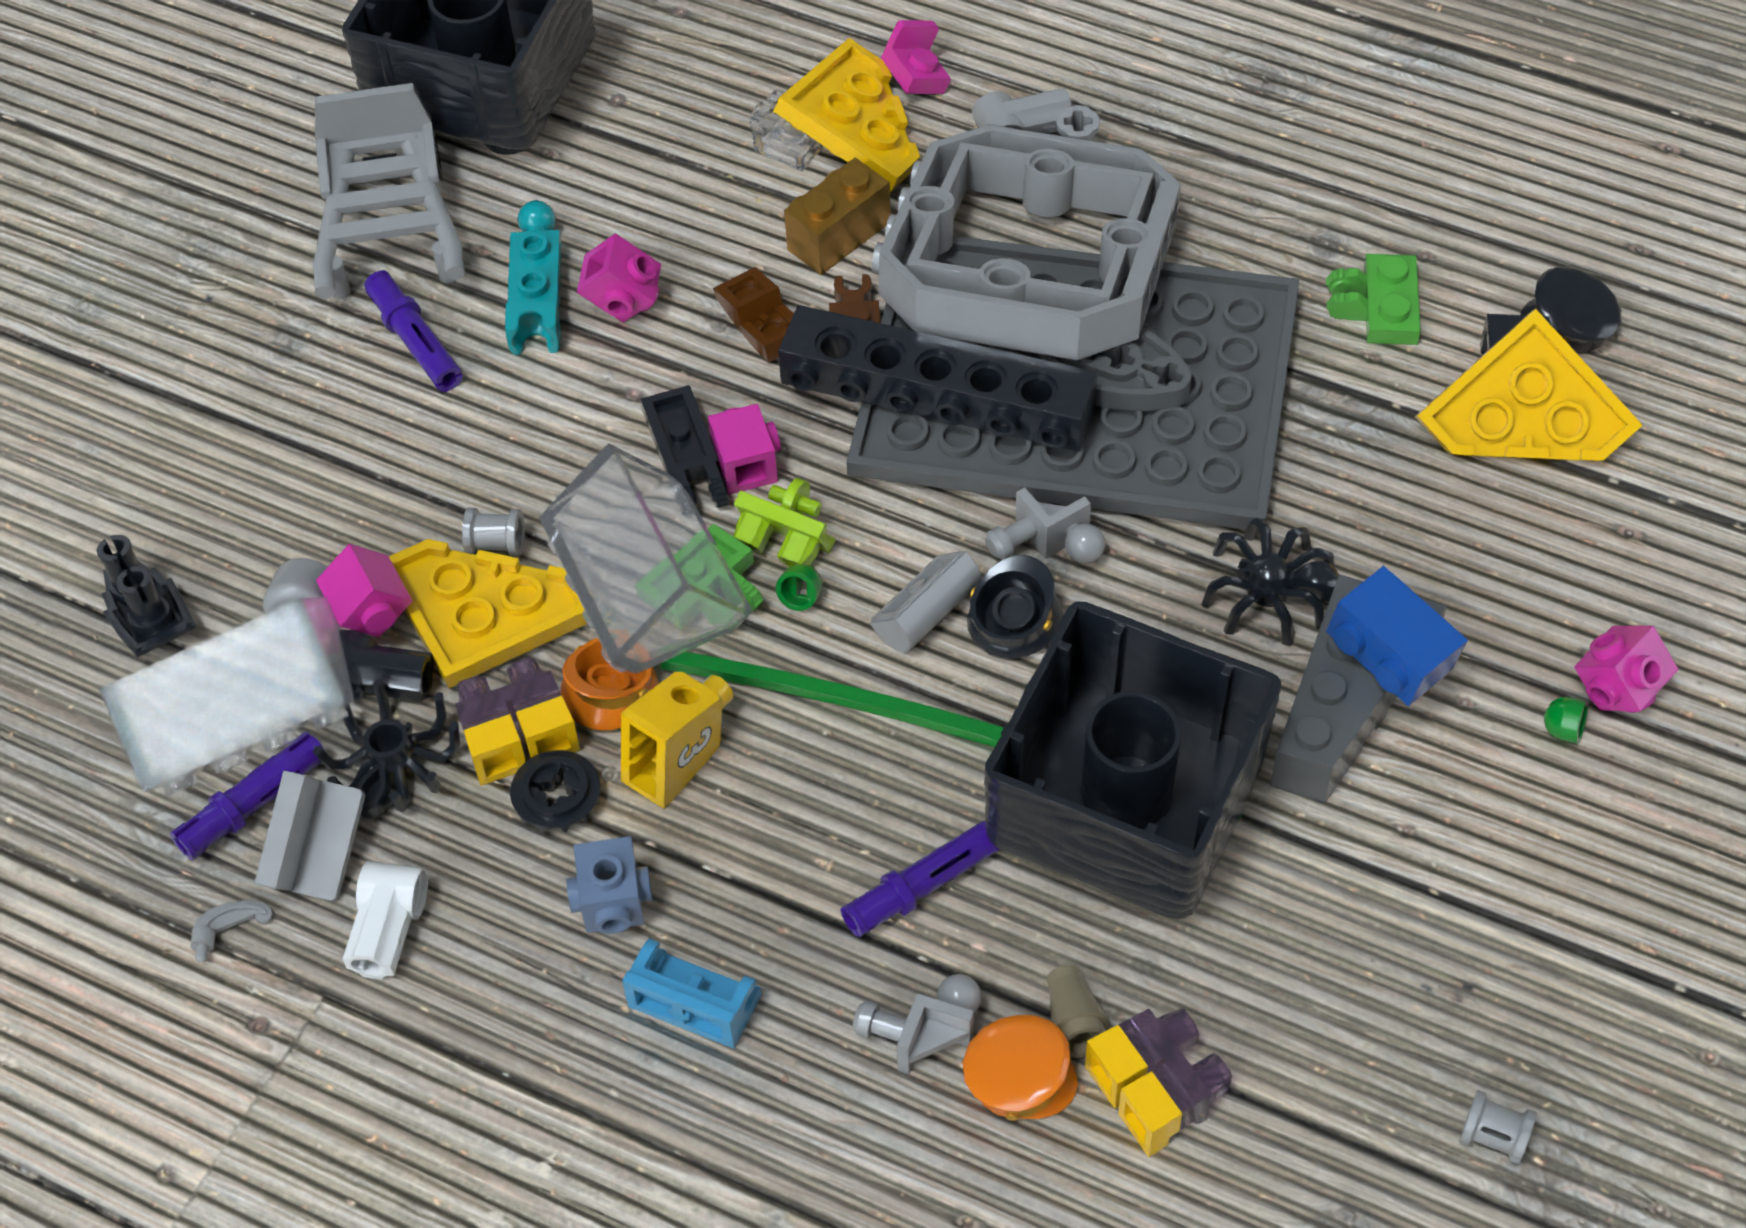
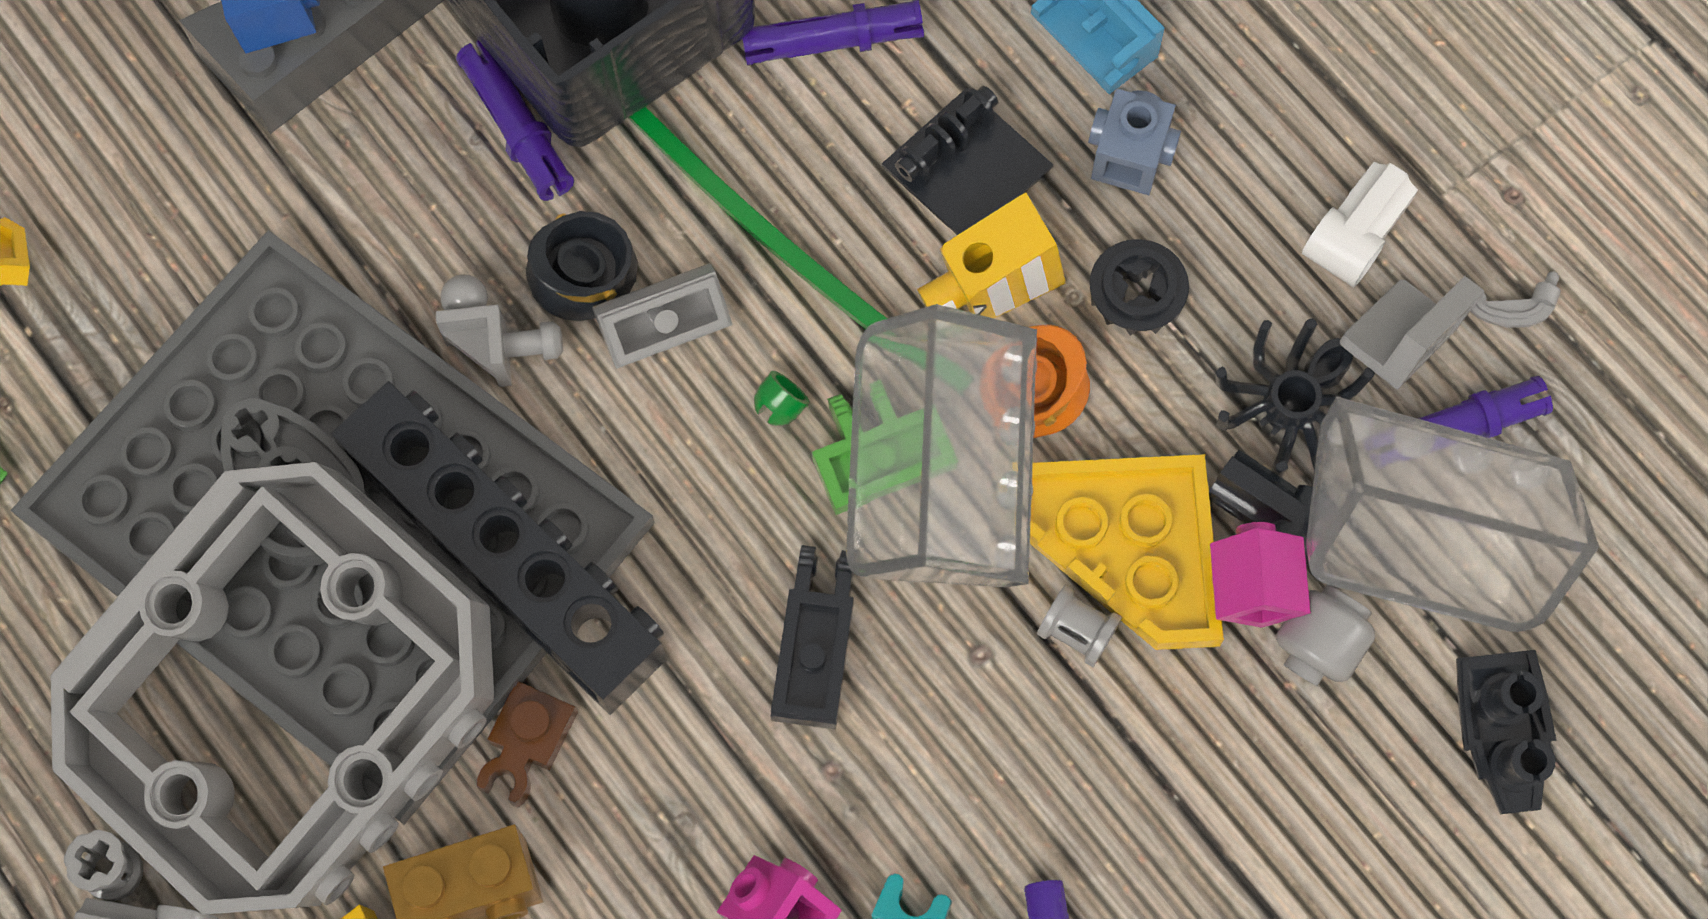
camera: 155 degrees left, 15 degrees up
(490, 717) = (1127, 383): hips -> none
(744, 448) = (750, 598): dark pink brick -> none
(748, 825) = (967, 161): none -> black hinge
(756, 310) = (629, 800): reddish brown slope -> none
(802, 534) = (755, 479): lime hips -> none
(1273, 579) = (305, 176): black animal -> none

